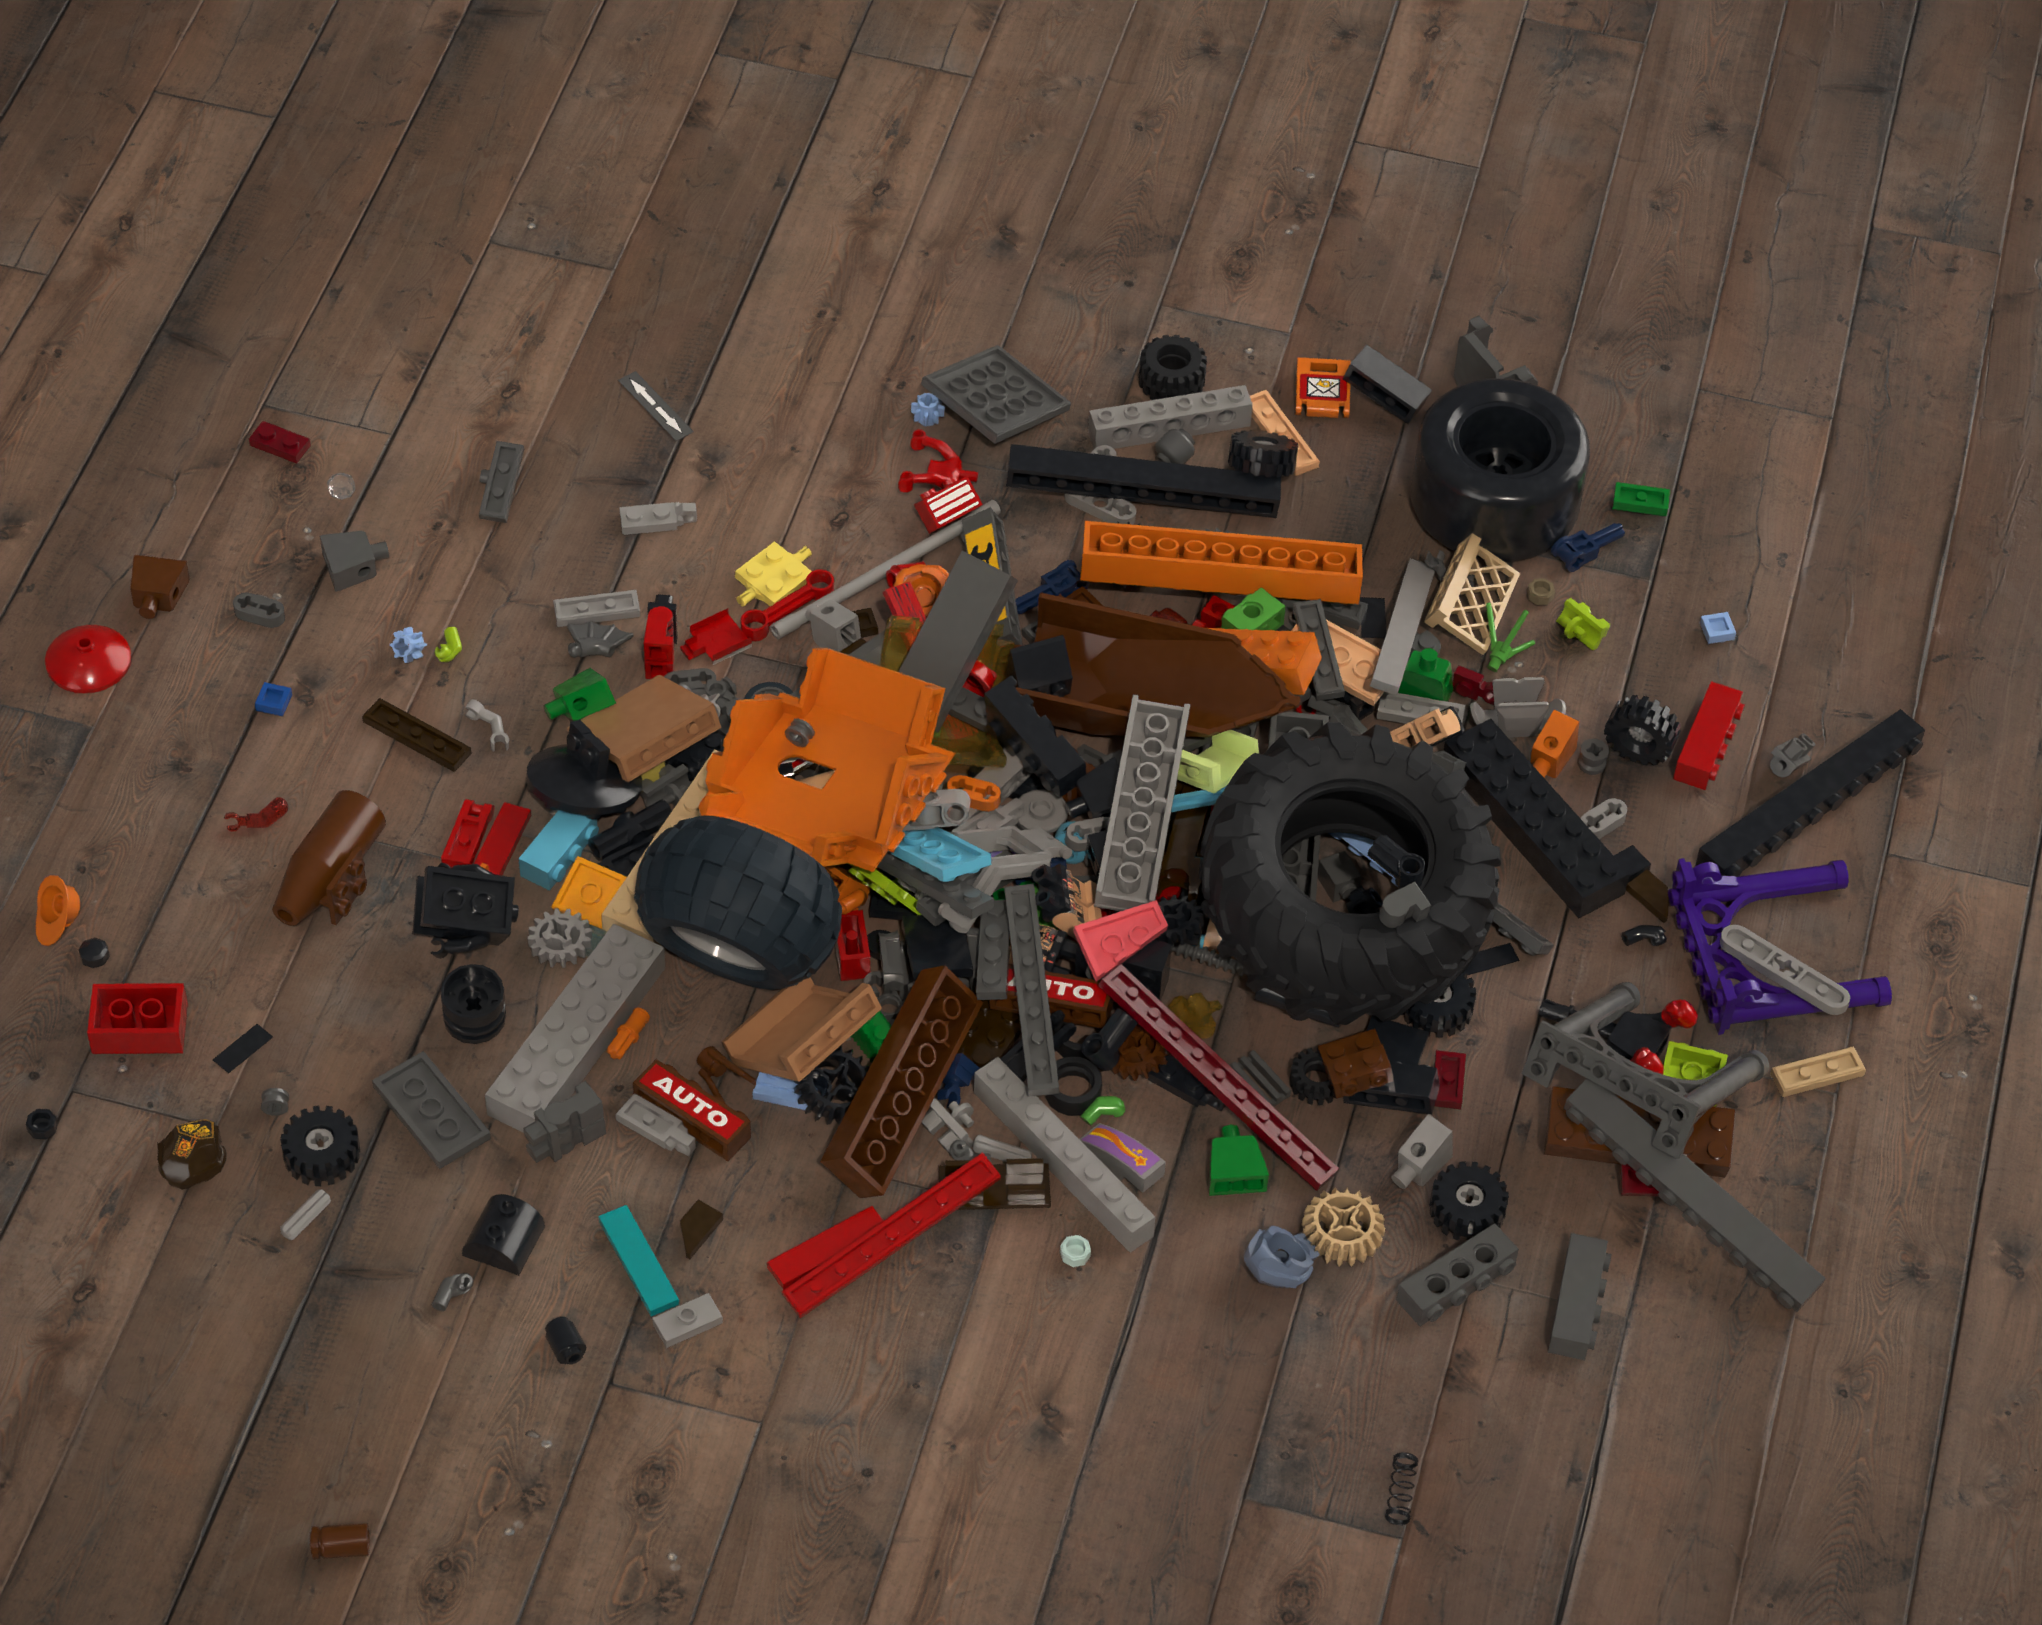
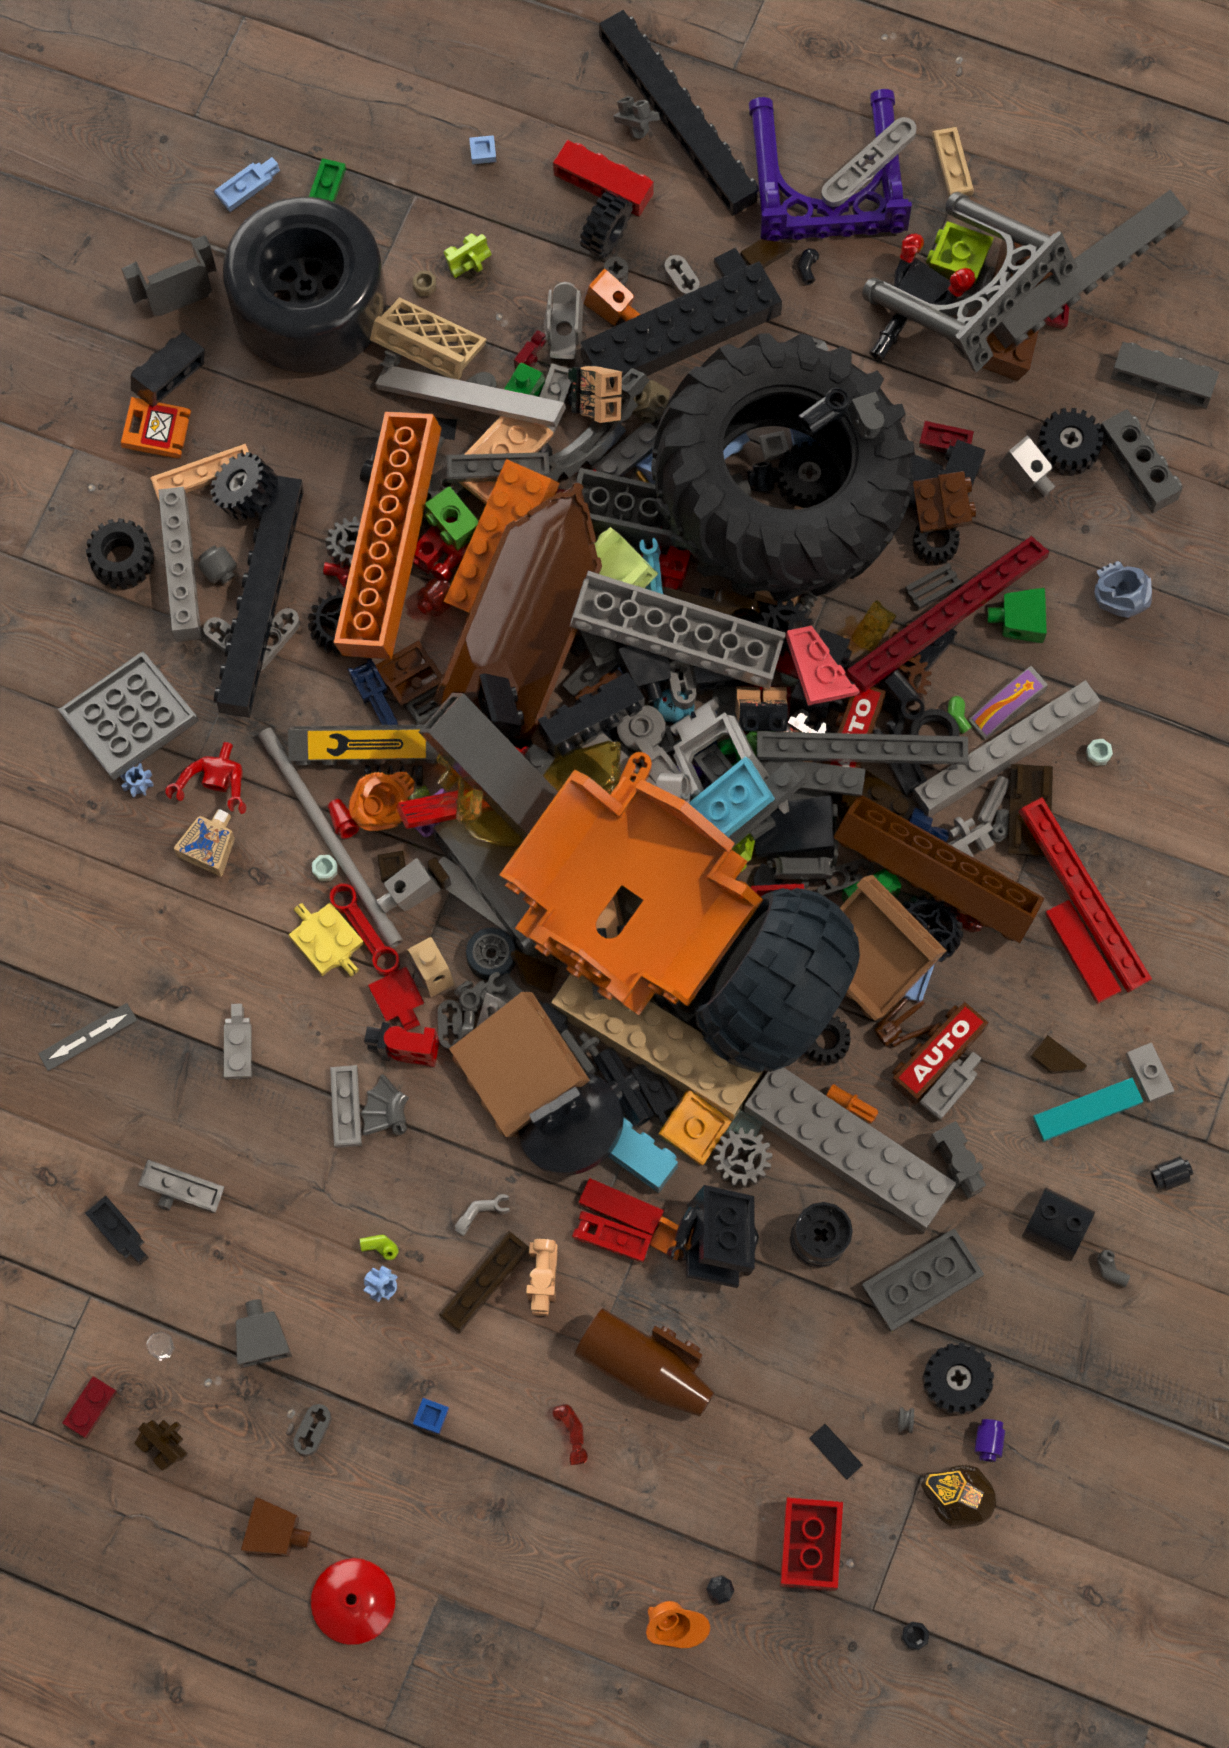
camera: 80 degrees left, 20 degrees up
(244, 494) = (165, 1439): none -> dark brown hips
(253, 1179) = (990, 1440): none -> dark purple brick
(305, 1214) = (1026, 1395): light grey axle -> none
(418, 772) = (543, 1277): none -> light nougat hips
(455, 442) = (117, 1229): none -> black hinge
(580, 696) = (467, 1122): green torso -> none
(700, 992) = (838, 1051): none -> black tyre
(749, 653) = (429, 965): none -> tan torso
(799, 732) = (583, 911): dark grey bush -> none
(851, 566) = (324, 868): none -> light aqua tile
(865, 470) = (207, 843): none -> torso
(948, 504) = (266, 771): brick -> none
(1341, 1215) = (1099, 556): tan gear -> none
(1501, 650) = (490, 327): bright green plant -> none
(1583, 548) = (386, 245): dark blue connector -> none
(1625, 434) = (246, 183): none -> light blue hinge

